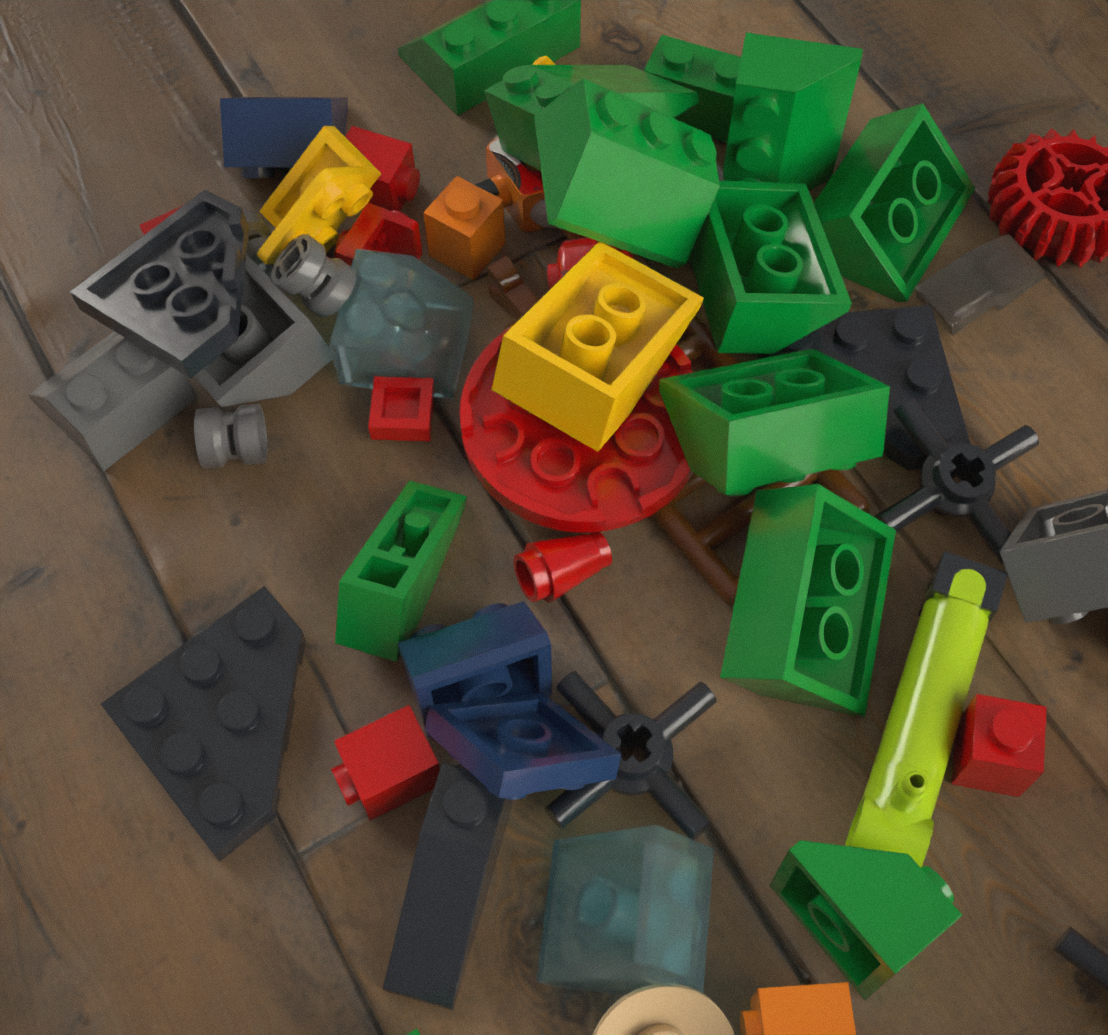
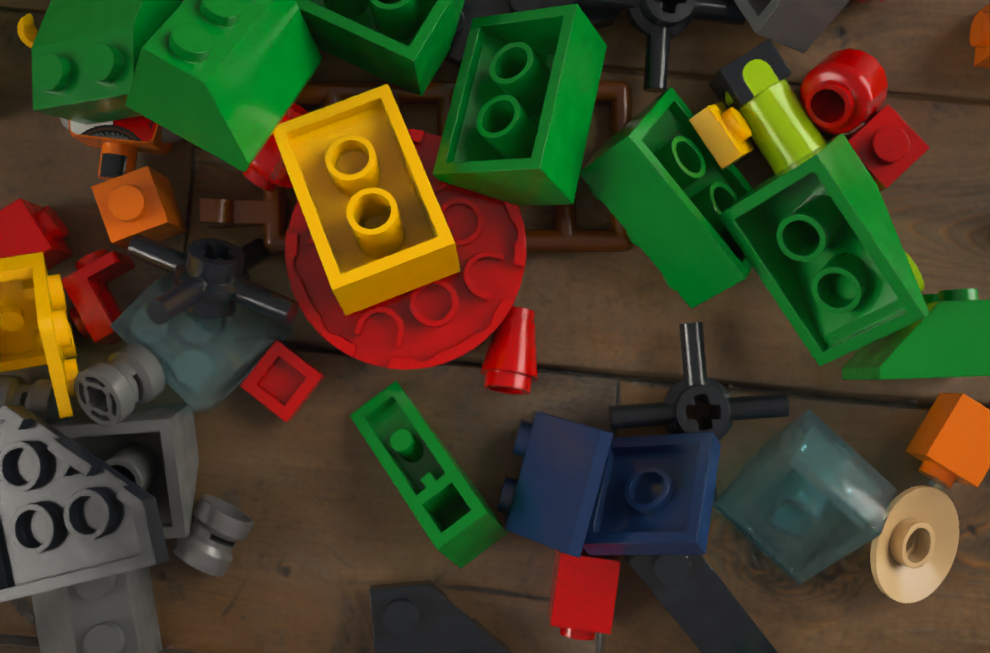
camera: 55 degrees left, 25 degrees up
(445, 286) = (210, 280): none -> black bar
(868, 724) = (828, 251): none -> green slope
(894, 599) = (723, 133): none -> yellow plate
(1025, 669) = (844, 91): none -> red head

